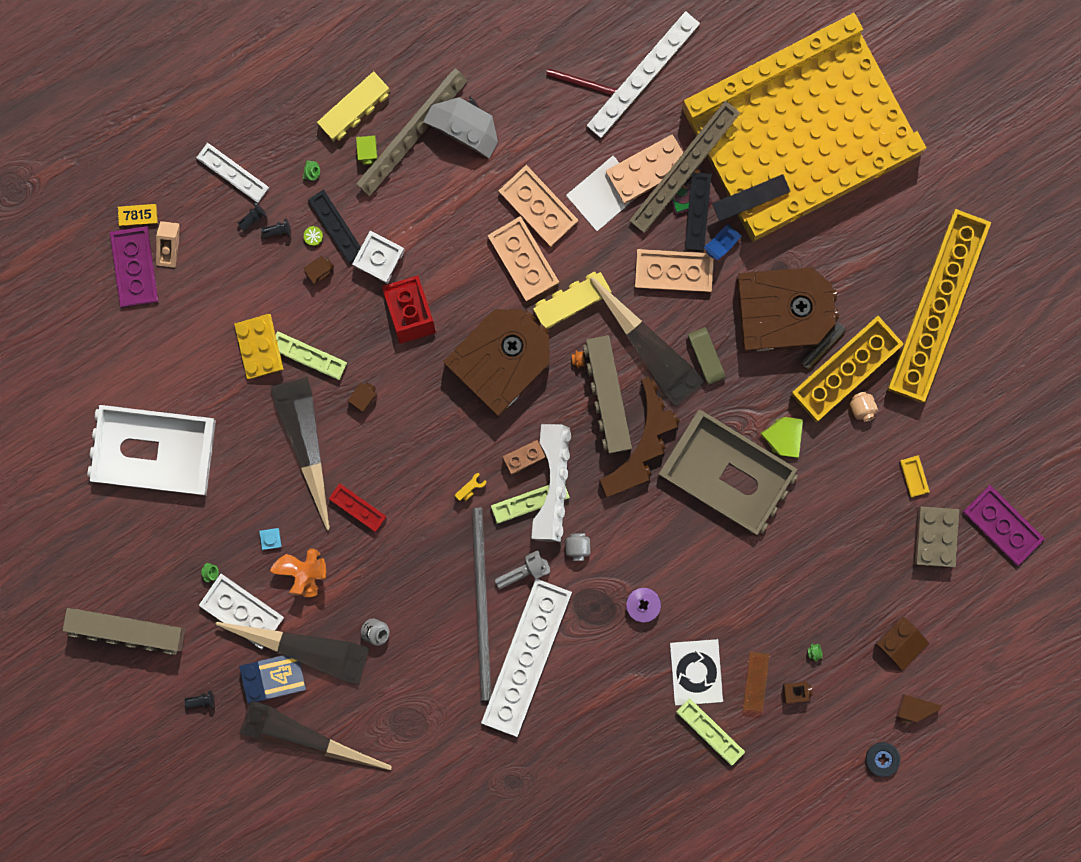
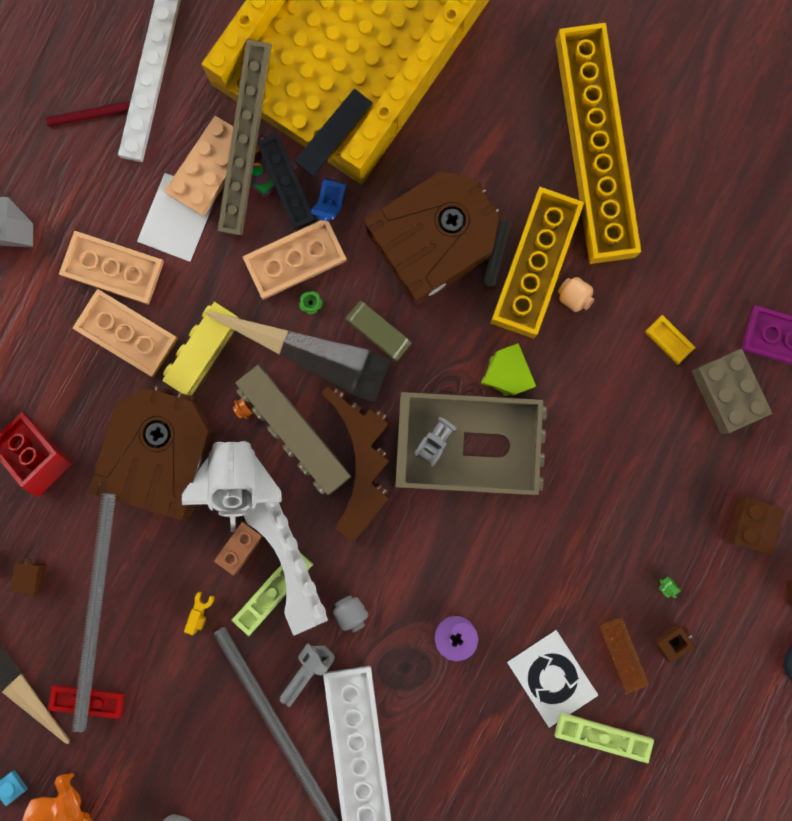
camera: 30 degrees left, 0 degrees up
(392, 459) = (94, 613): none -> light grey axle
(546, 407) = (231, 481): none -> white brick
(673, 308) = (310, 296): none -> bright green plate
(703, 459) = (435, 443): none -> light grey connector

